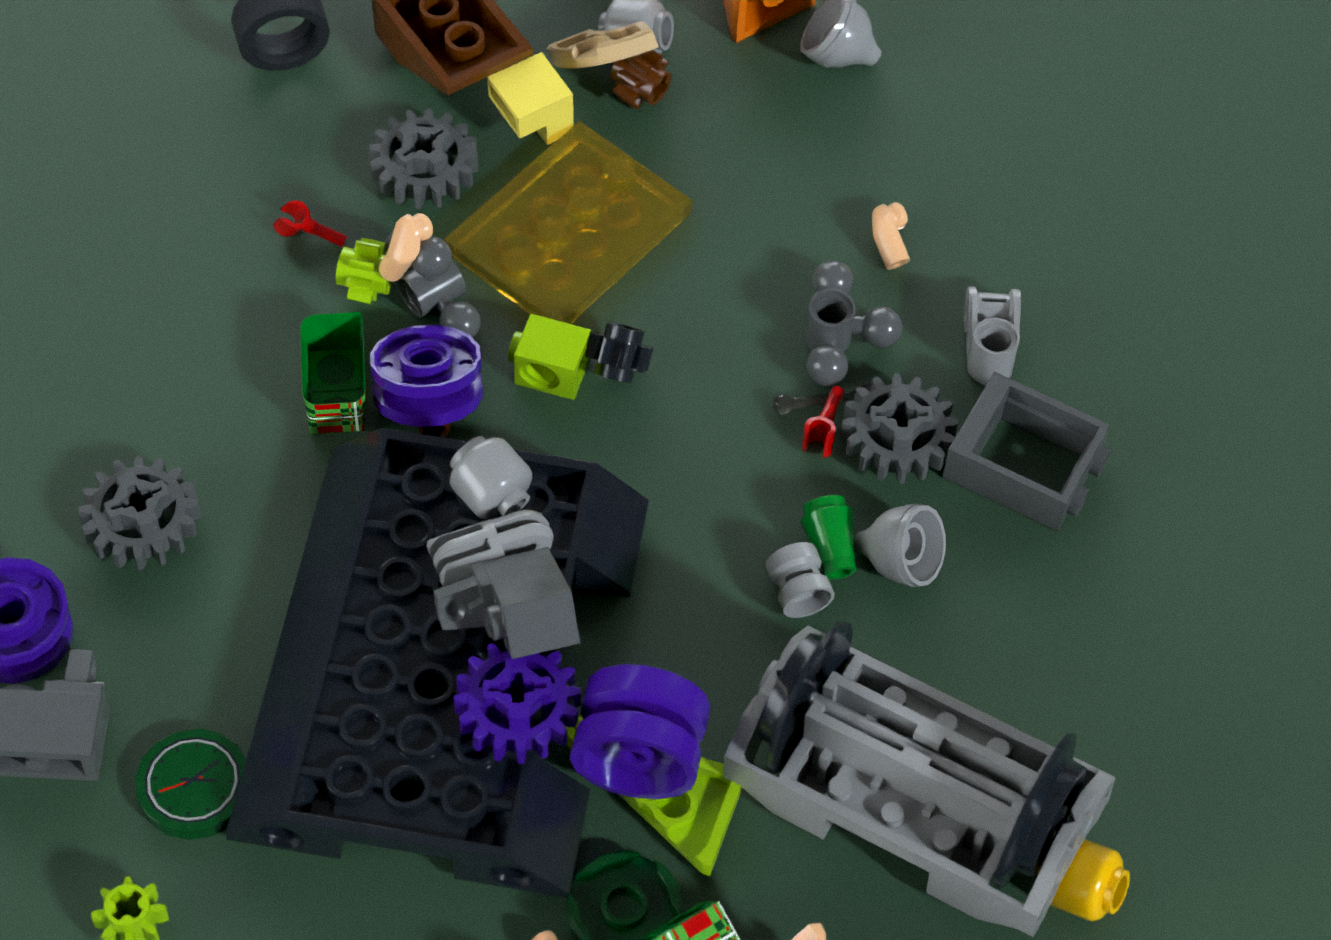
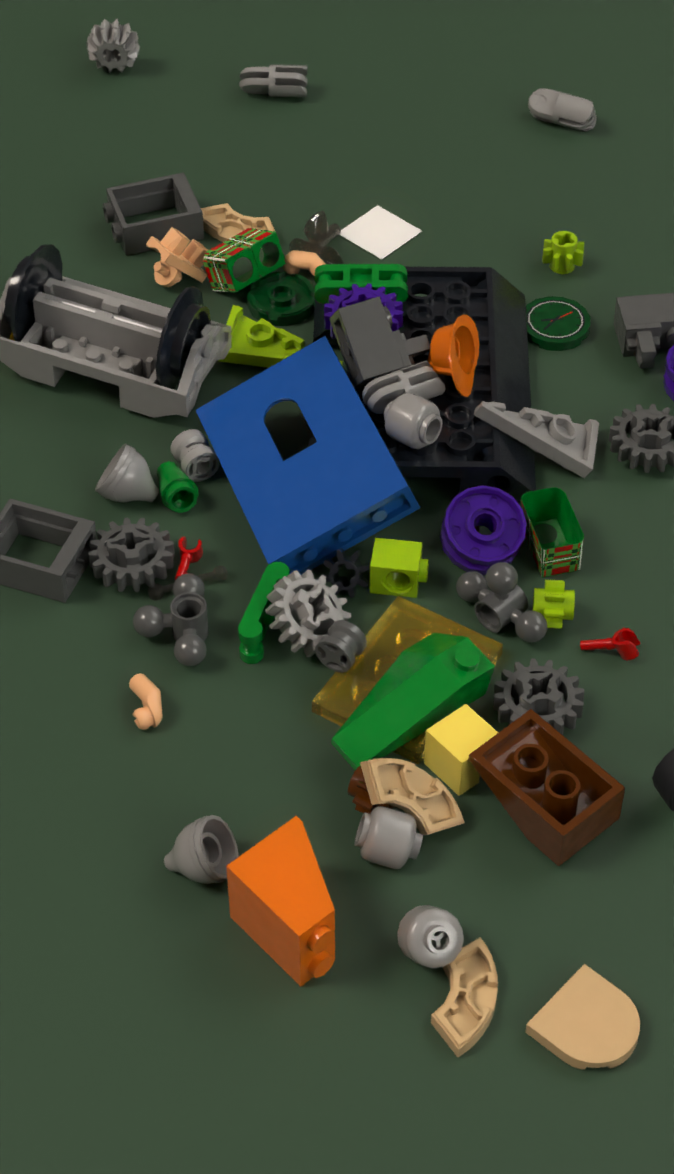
camera: 175 degrees right, 10 degrees down
(282, 509) = (545, 433): none -> light grey wing
(404, 588) = (456, 352): none -> orange piece
(405, 245) = (523, 575): light nougat arm -> none
(505, 786) = (334, 276): none -> green plate
(558, 162) = (414, 695): none -> green wedge
(623, 414) = (324, 494): none -> blue panel
(640, 732) = (283, 314): dark purple wheel -> none
(648, 233) = (341, 646): none -> dark grey wheel
(680, 290) = (305, 613): none -> light grey gear
(733, 320) = (255, 619): none -> green plate
(991, 332) = (61, 628): light grey piece -> none

